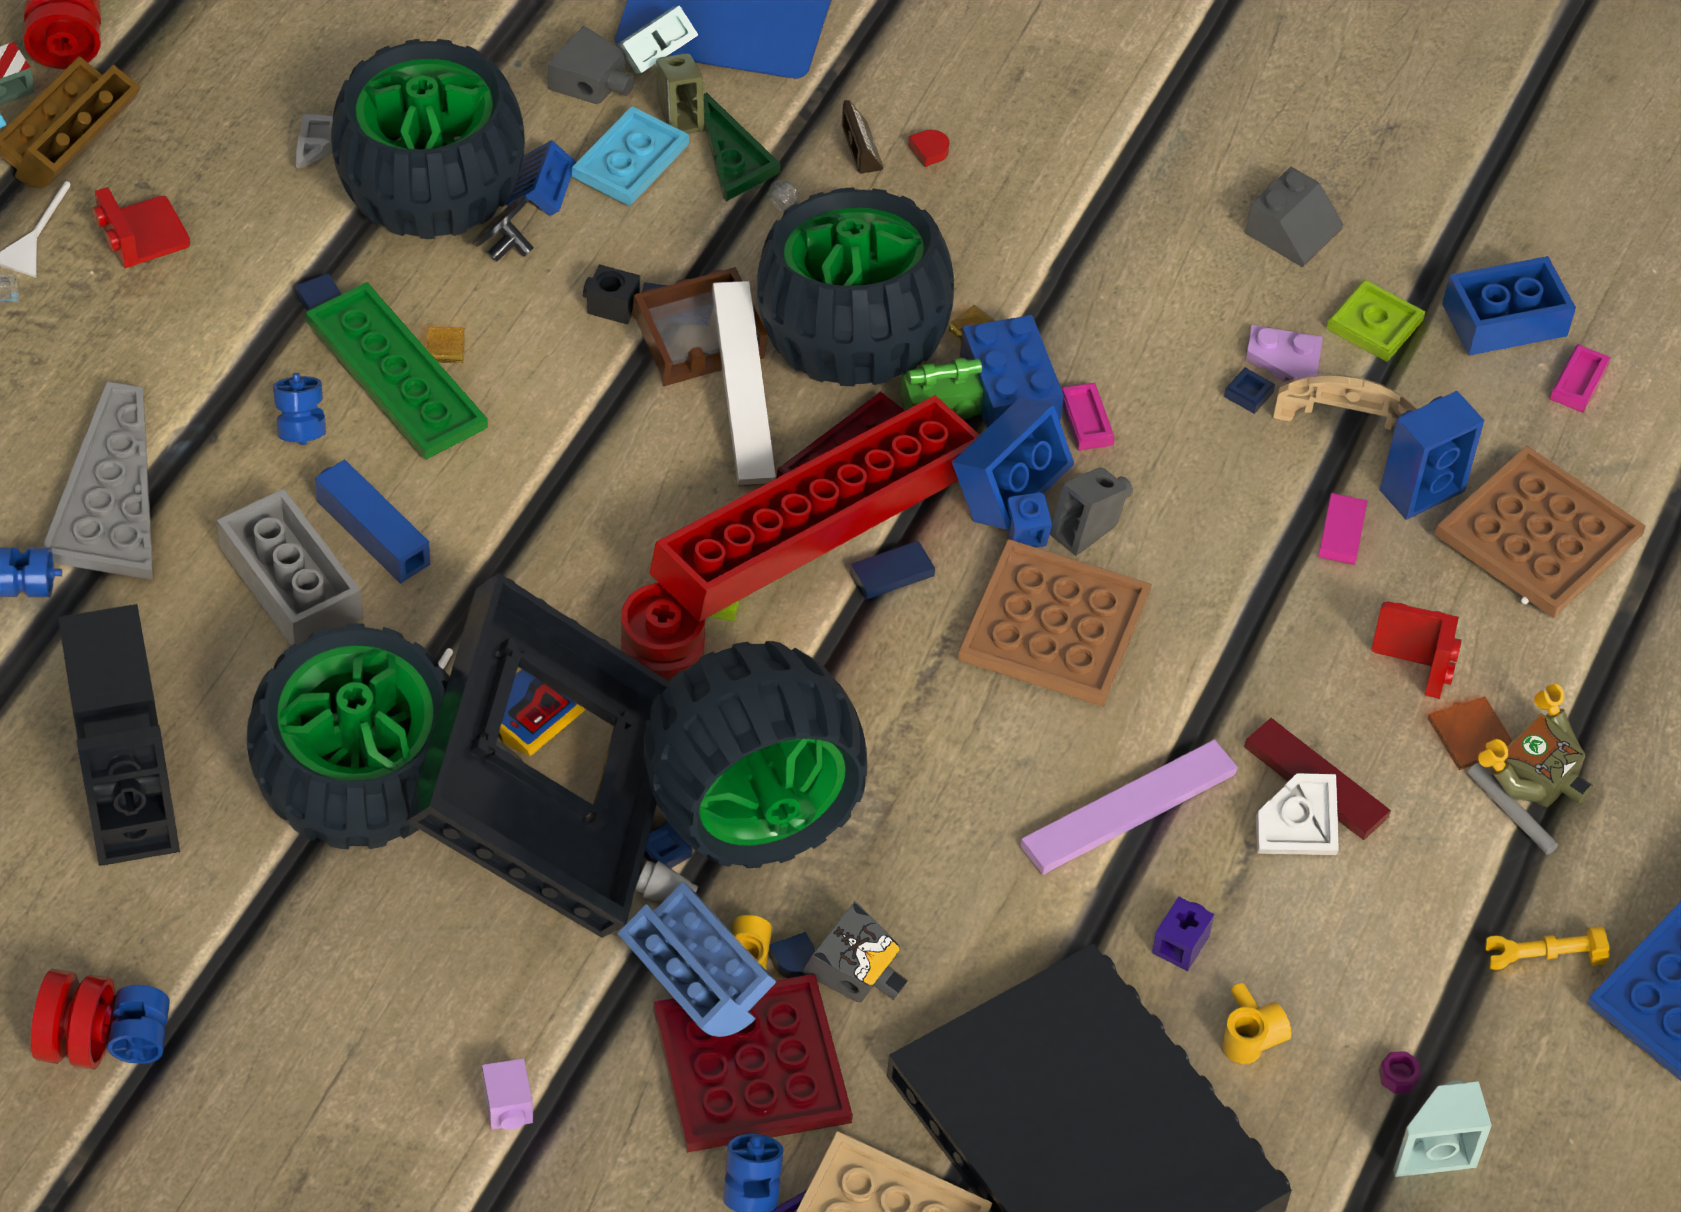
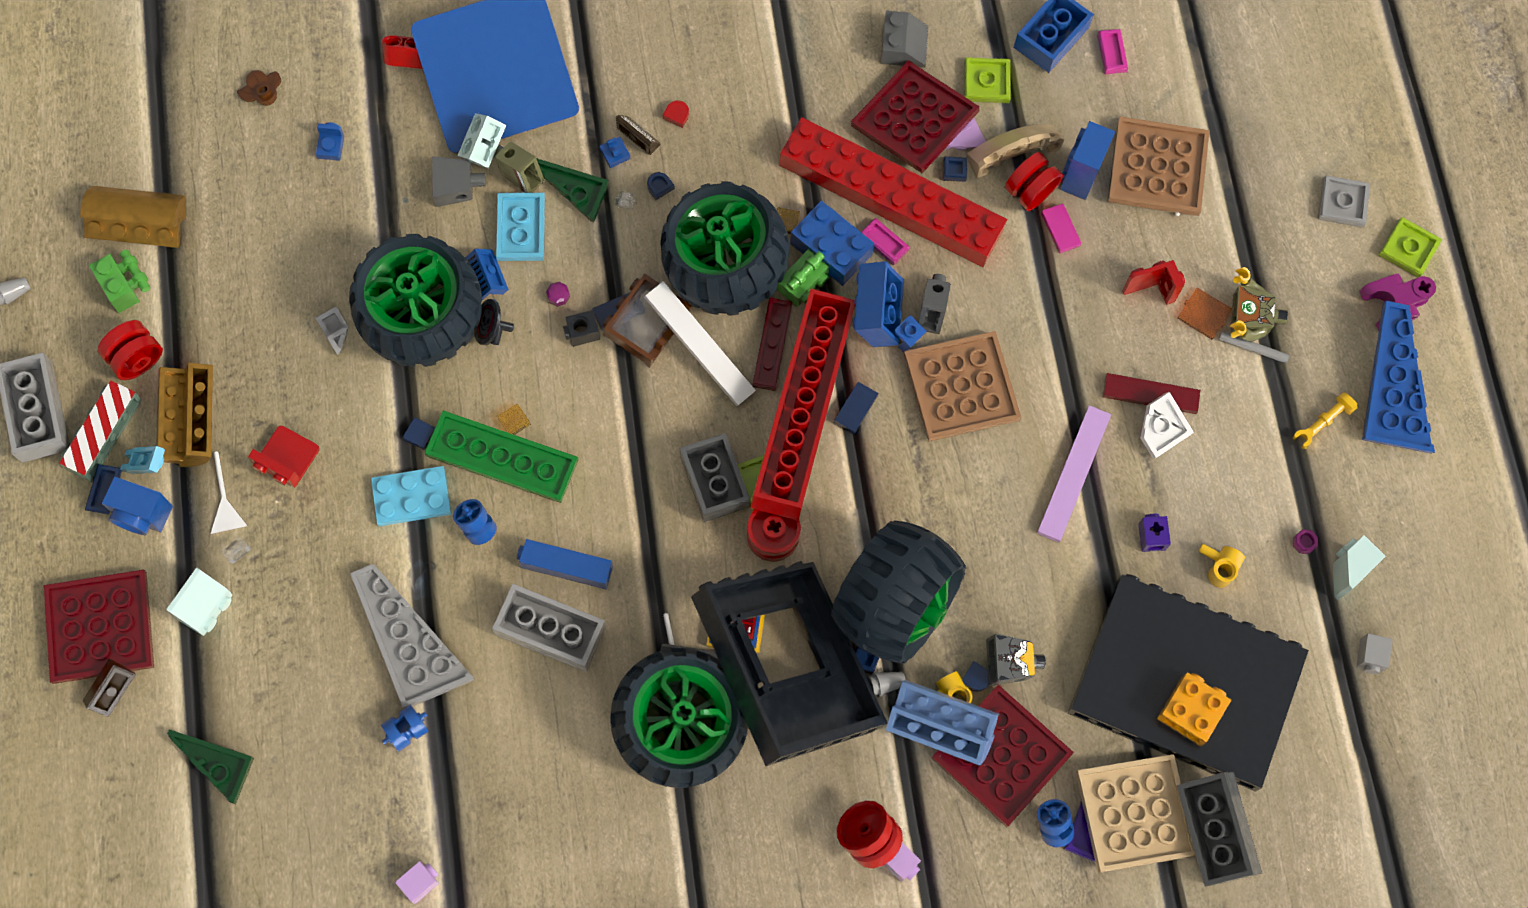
camera: 35 degrees left, 20 degrees up
(118, 735) = (541, 793): black brick -> none
(250, 350) = (411, 496): none -> medium azure plate
(489, 1025) = (869, 834): none -> red wheel
(616, 247) = (558, 294): none -> magenta tile
(632, 519) = (714, 477): none -> dark grey brick
(816, 144) = (614, 152): none -> blue tile
(1059, 1148) = (1194, 708): none -> light orange brick
(1142, 367) = (892, 192): none -> red brick
(1239, 301) = (915, 116): none -> dark red plate
(1340, 445) = (1033, 181): none -> red wheel

